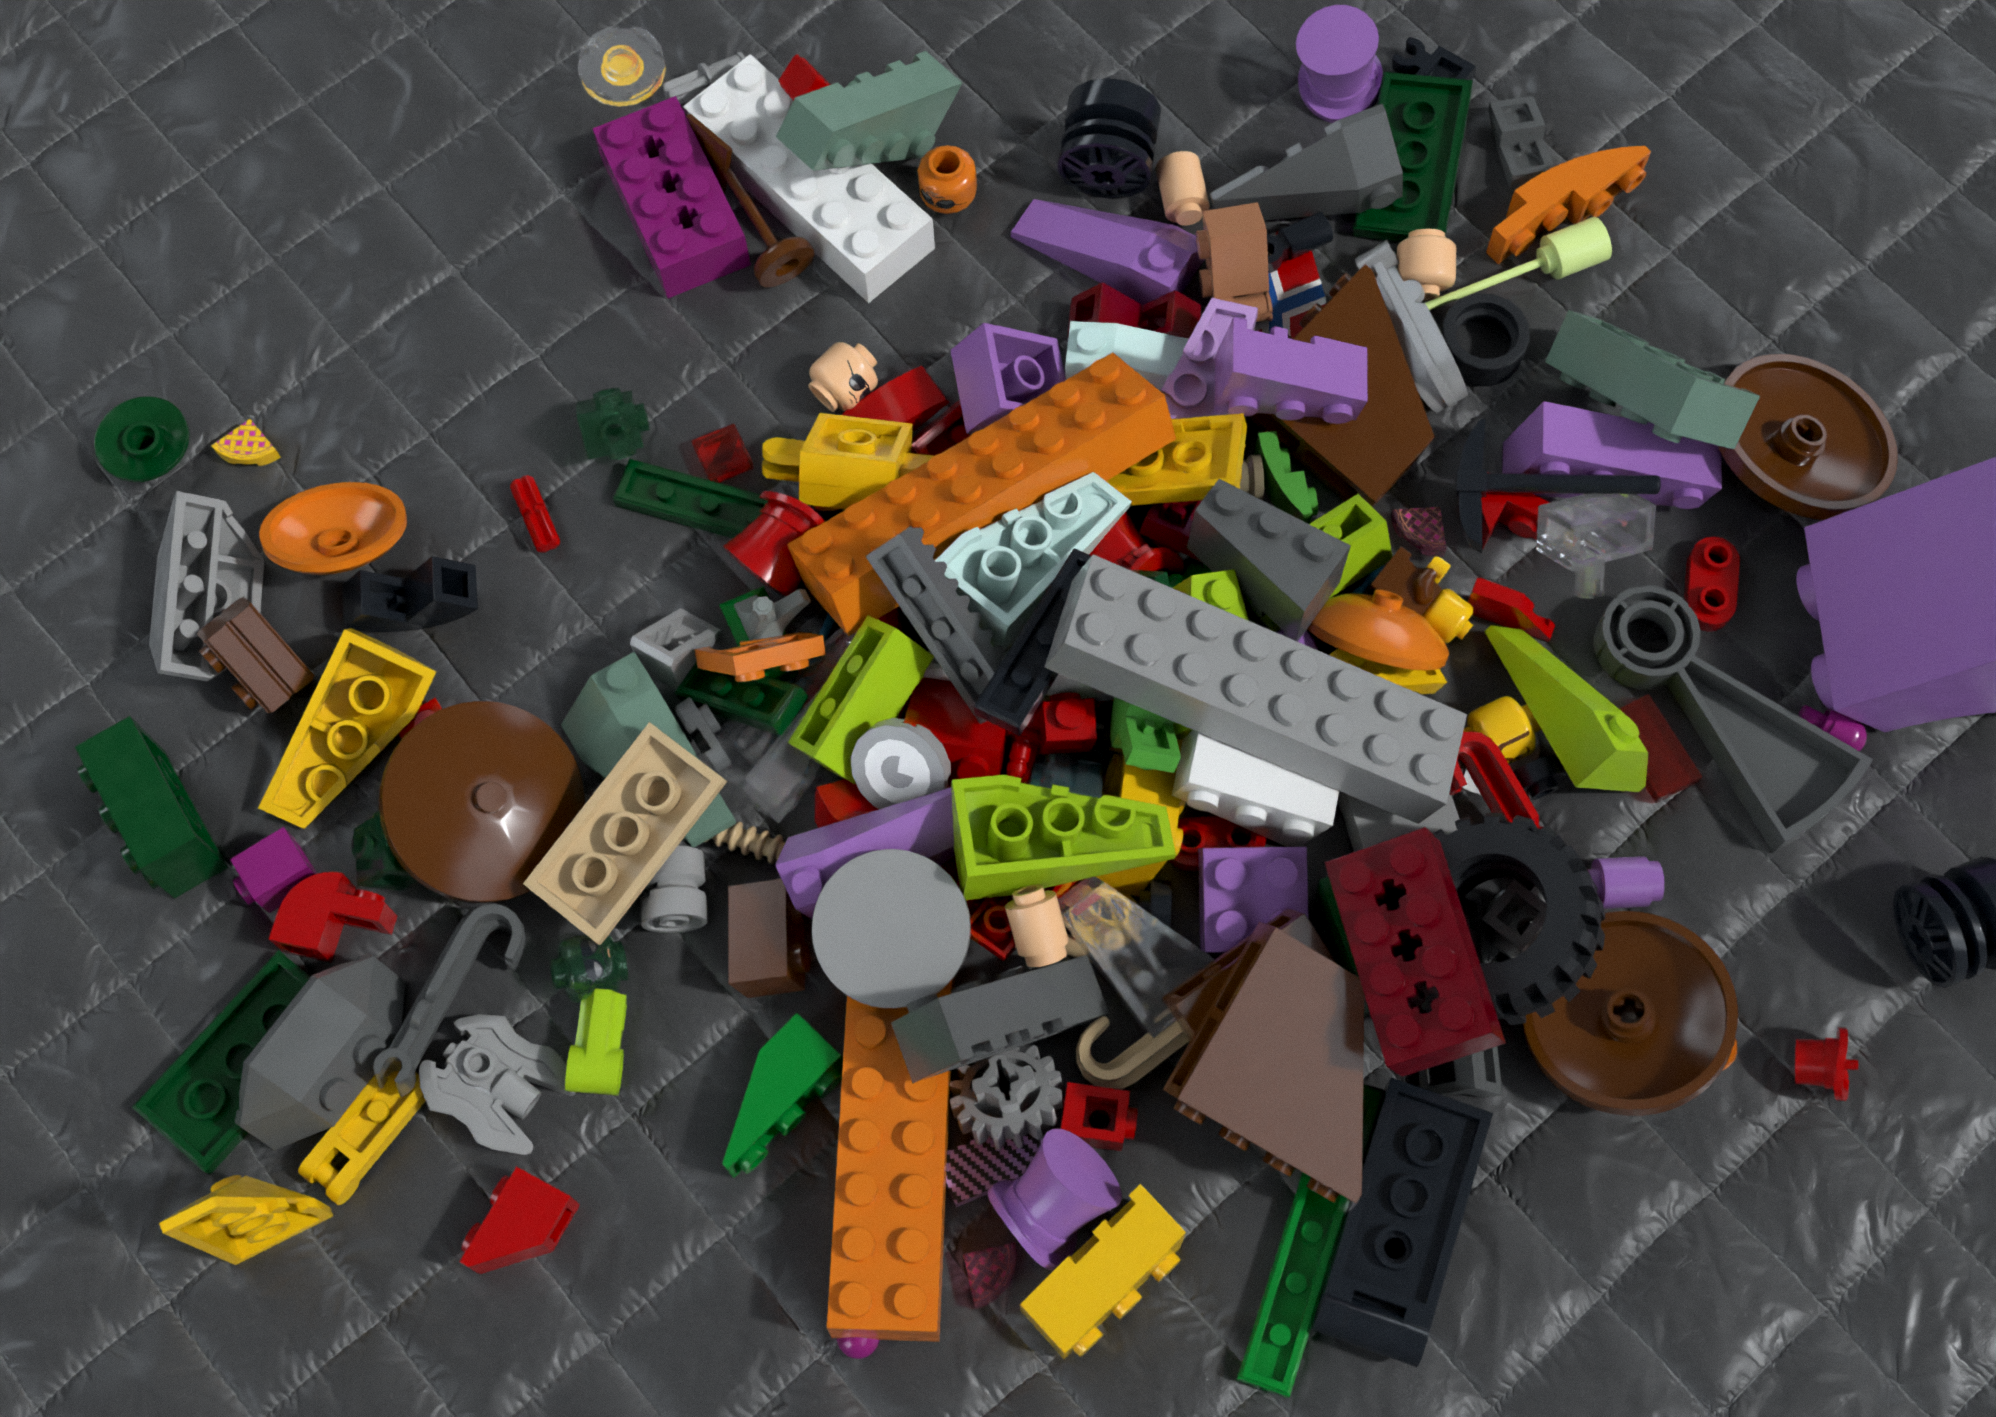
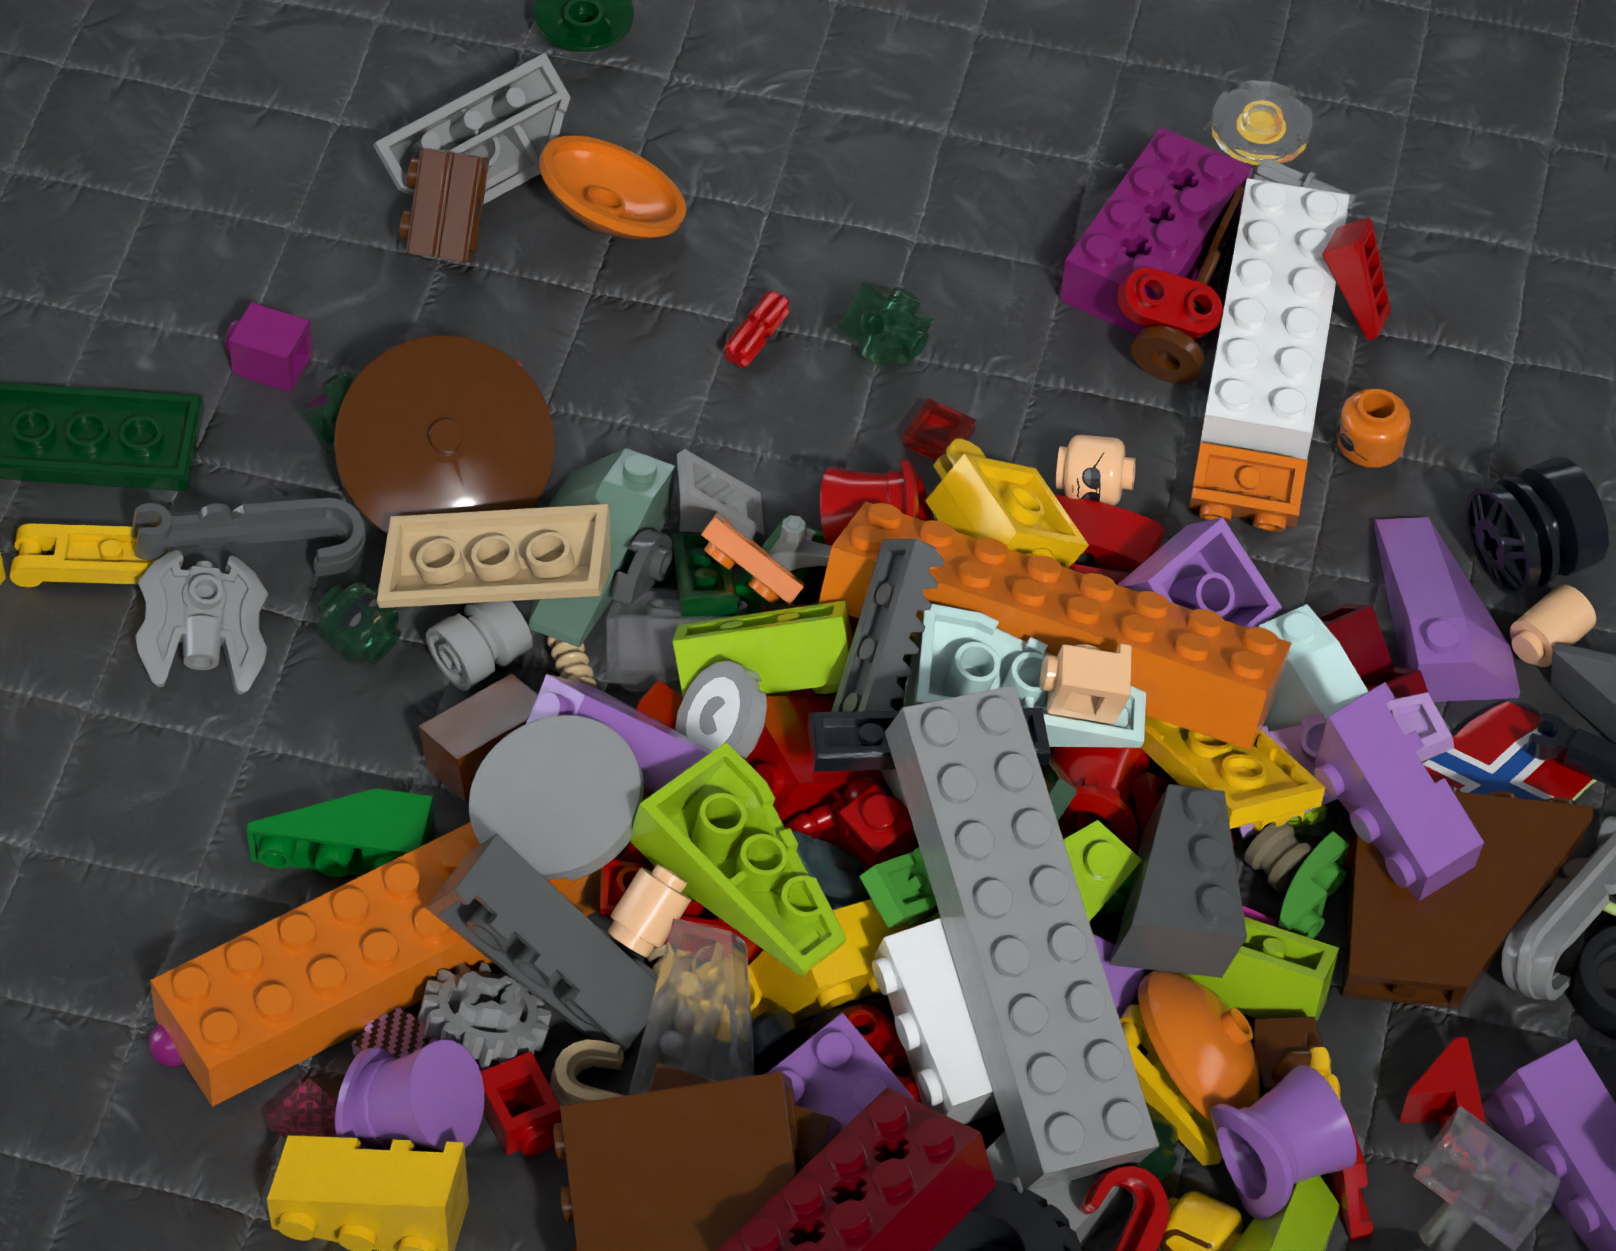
camera: 50 degrees right, 15 degrees down
(149, 808) = (253, 220): dark green brick -> none
(246, 446) = (643, 90): yellow tile -> none
(317, 910) = (254, 400): red brick -> none
(320, 1052) = (113, 459): dark grey wedge -> none
(351, 717) = (475, 296): yellow wedge -> none
(426, 598) = (585, 284): black brick -> none
(521, 1224) = (85, 714): red slope -> none
(597, 1056) = (280, 680): lime piece -> none
(687, 499) = (865, 420): dark green tile -> none
(758, 228) = (1172, 303): none -> red plate
(872, 116) = (1361, 313): sand green wedge -> none
(929, 289) = (1248, 486): none -> orange bracket
(1075, 502) = (1087, 682): none -> light nougat brick
(1235, 257) = (1497, 703): nougat hinge -> none
(1421, 529) = (1371, 1050): clear pink tile -> none
(1475, 482) = (1446, 1046): black piece -> none
(1492, 632) = (1283, 1140): none -> medium lavender hat

